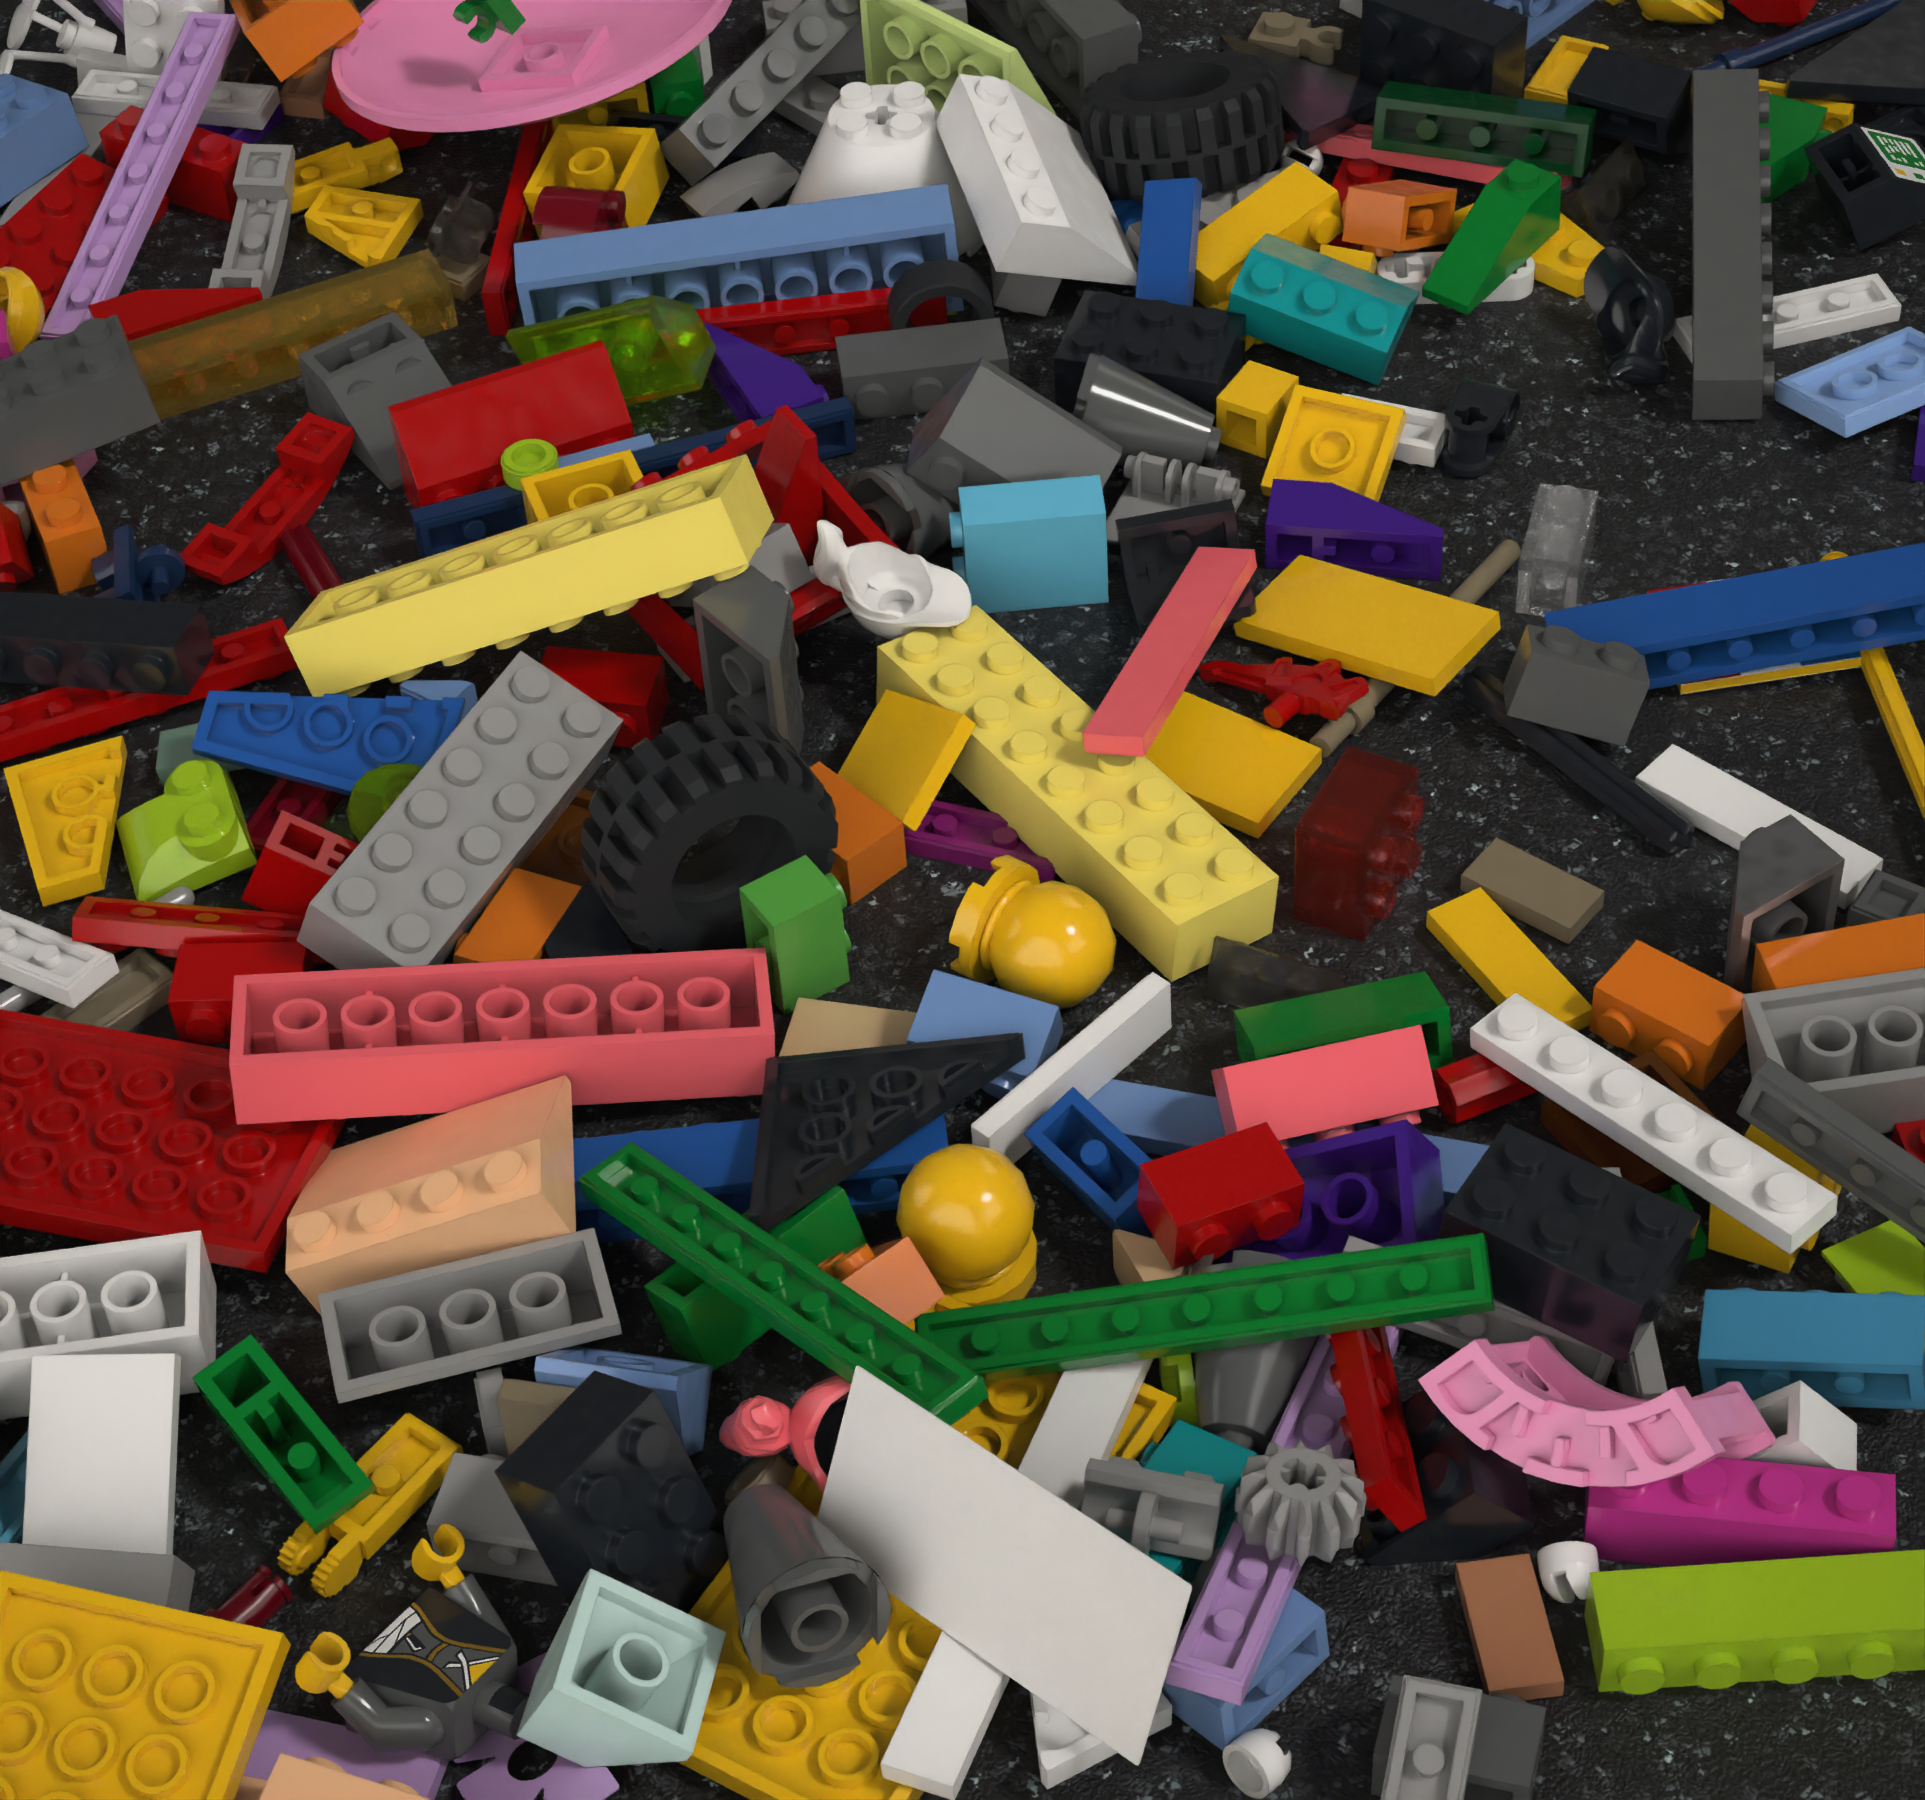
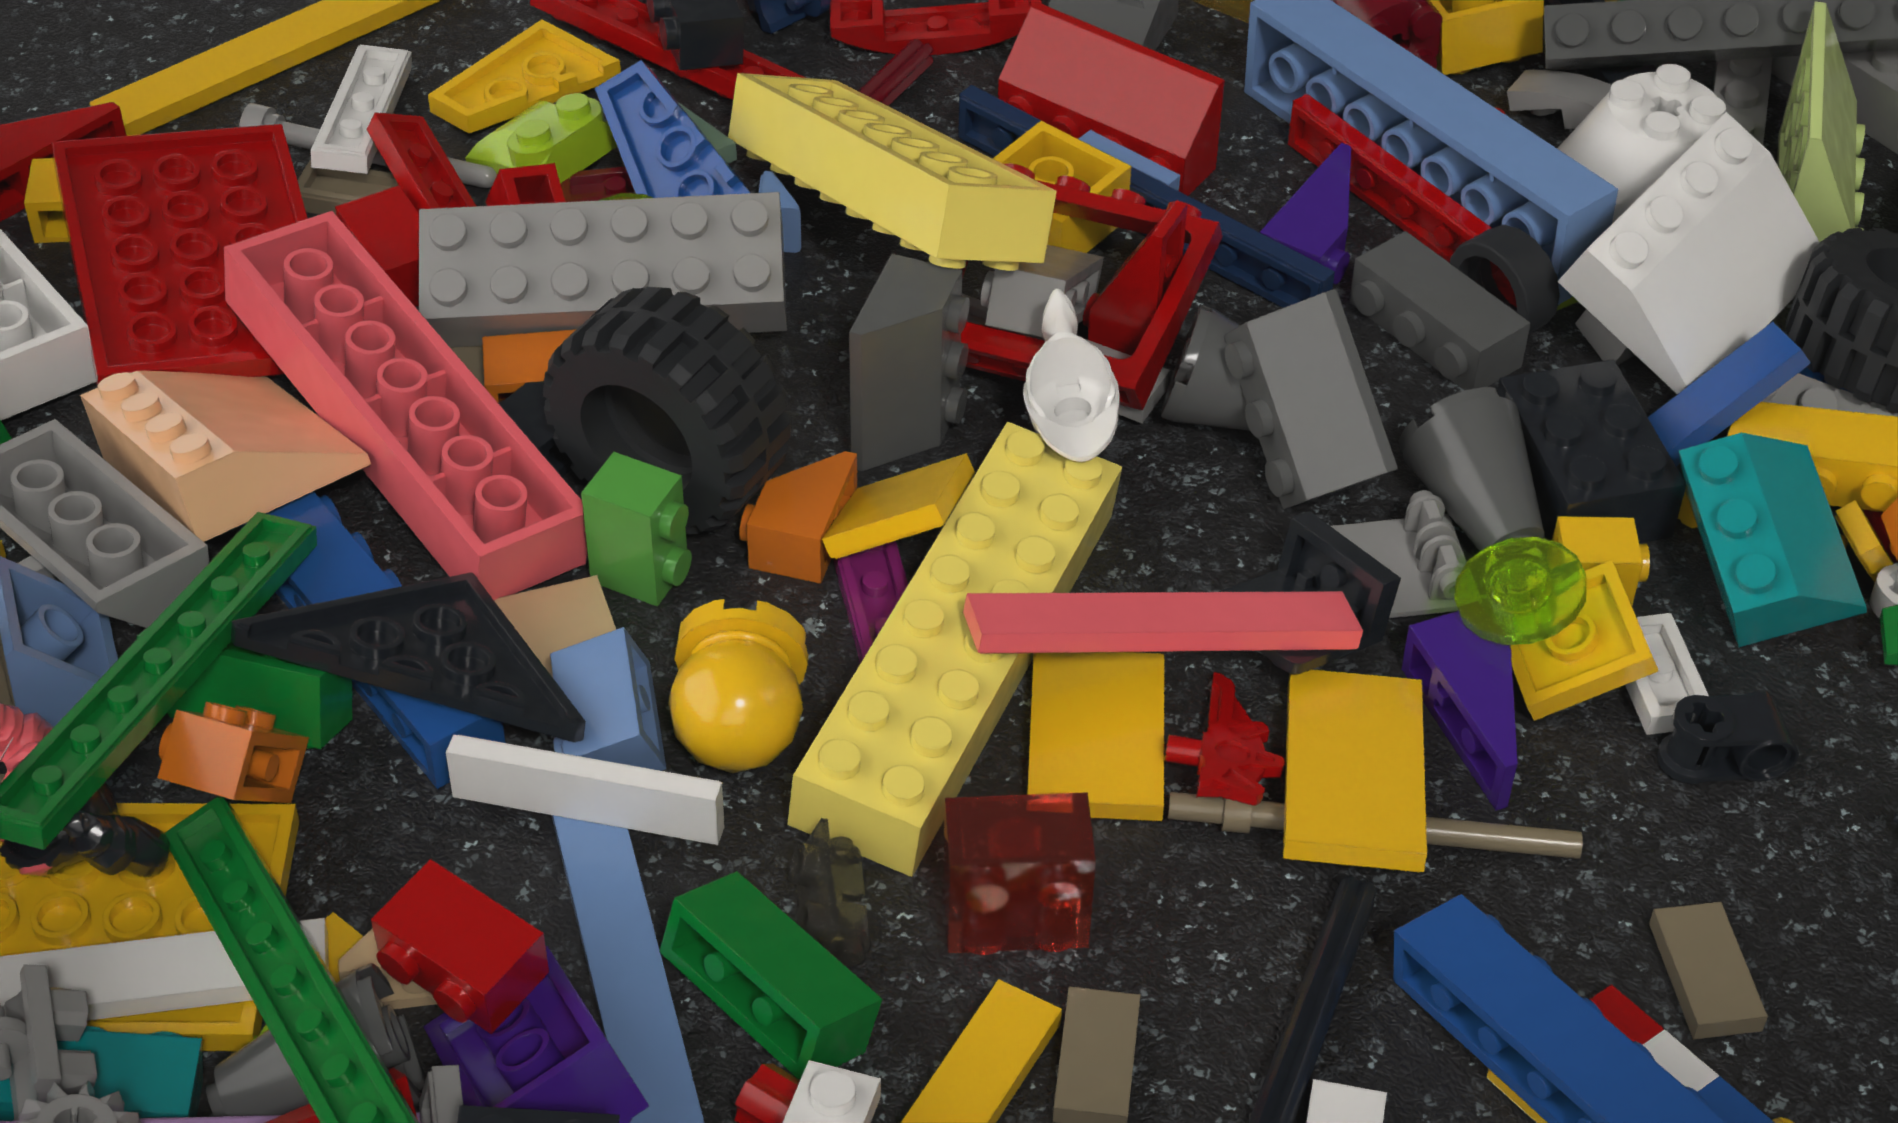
camera: 55 degrees right, 0 degrees up
(527, 459) = (1076, 118): lime tile -> none
(621, 682) = (840, 281): red brick -> none
(652, 343) = (1262, 119): clear neon green slope -> none
(971, 1223) = (361, 797): yellow tile -> none
(1032, 543) = (1240, 471): medium azure brick -> none
(1091, 1160) = (500, 840): blue brick -> none
(1292, 443) = (1521, 590): none -> clear neon green piece
(1330, 1087) = (663, 979): coral brick -> none
(1556, 549) = (1585, 876): clear brick -> none
(1576, 684) = (1375, 962): dark grey brick -> none
(1666, 538) = (1707, 970): none -> dark tan tile

